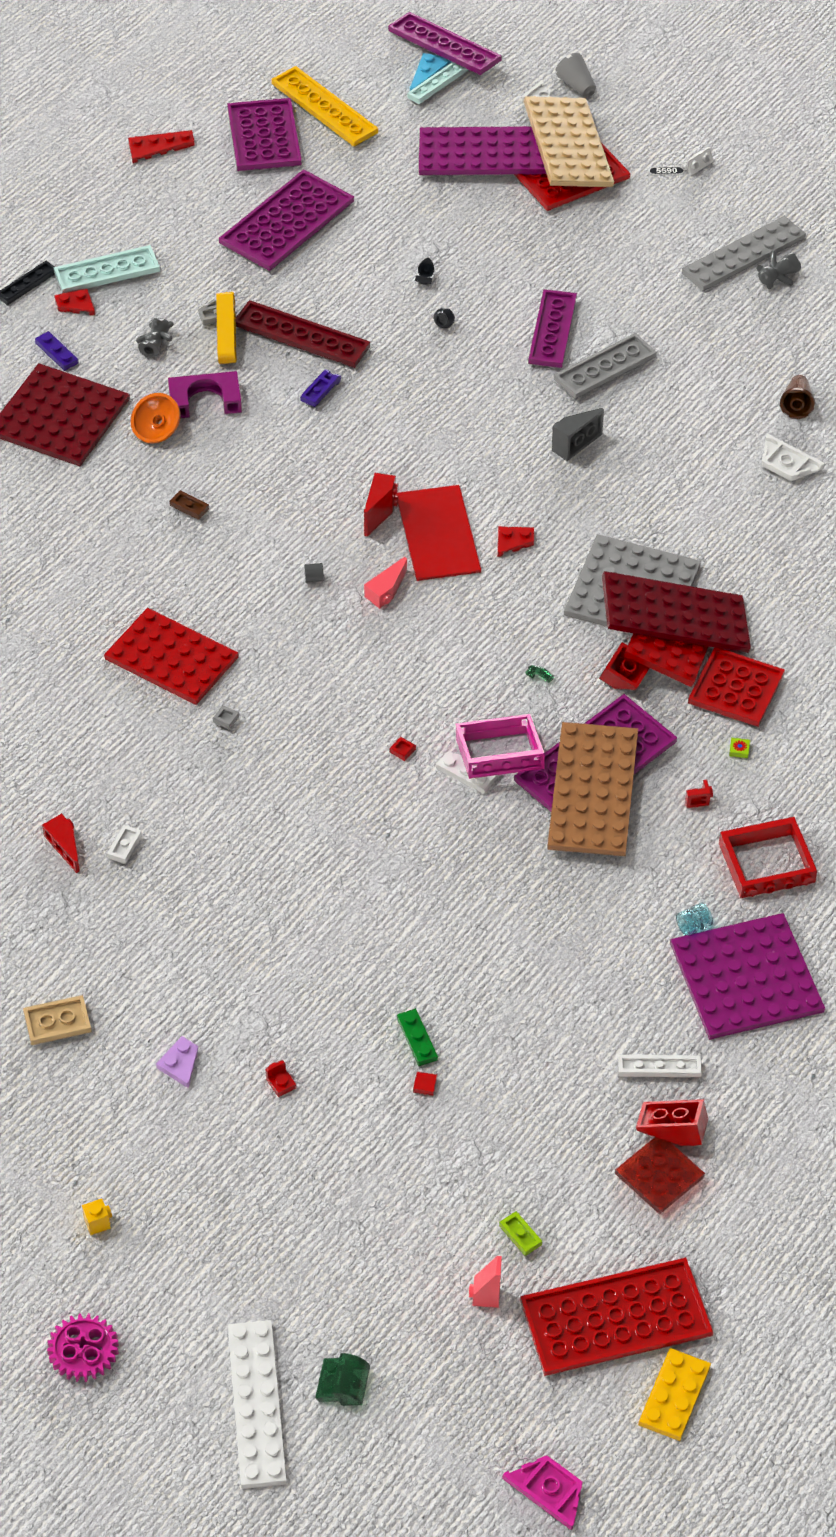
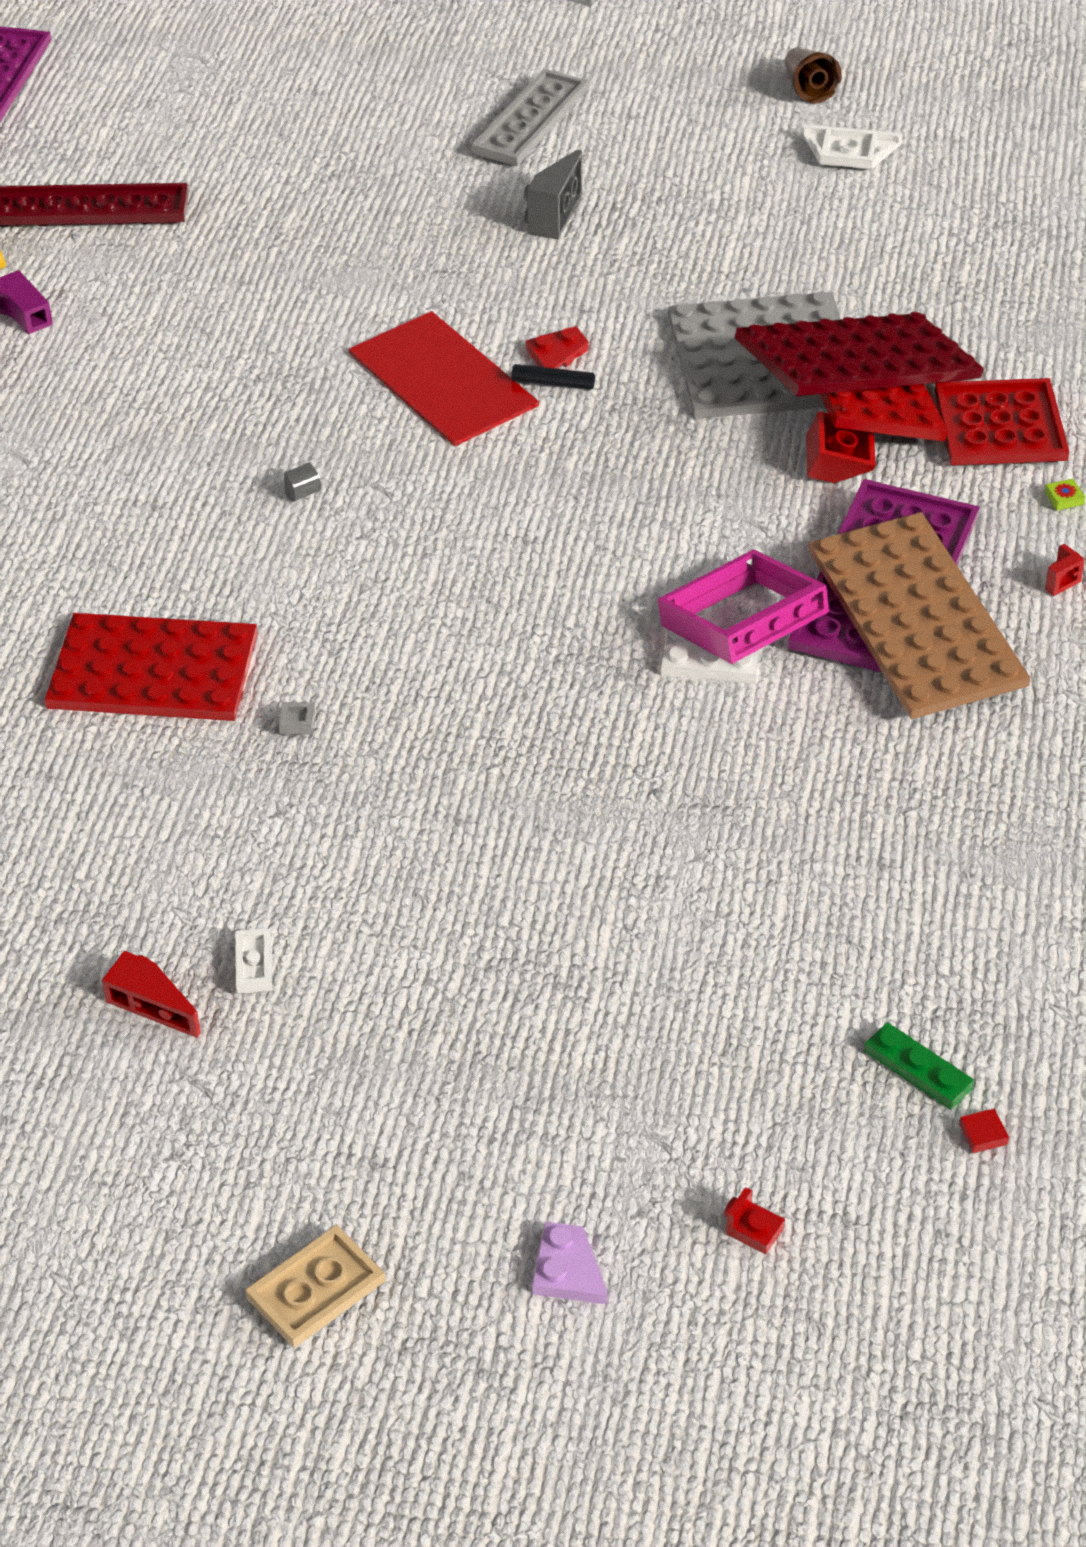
camera: 25 degrees left, 5 degrees down
(189, 505) = (52, 459): reddish brown plate -> none
(320, 388) = (151, 259): dark purple plate -> none
(380, 501) = (340, 357): red slope -> none
(385, 585) = (415, 468): coral slope -> none
(402, 748) = (594, 665): red tile -> none
(425, 272) = (209, 85): black plate -> none
(444, 317) = (271, 127): black animal -> none
(498, 556) = (553, 376): none -> black axle
(541, 671) = (721, 496): clear green arm -> none
(552, 328) = (429, 98): magenta plate -> none

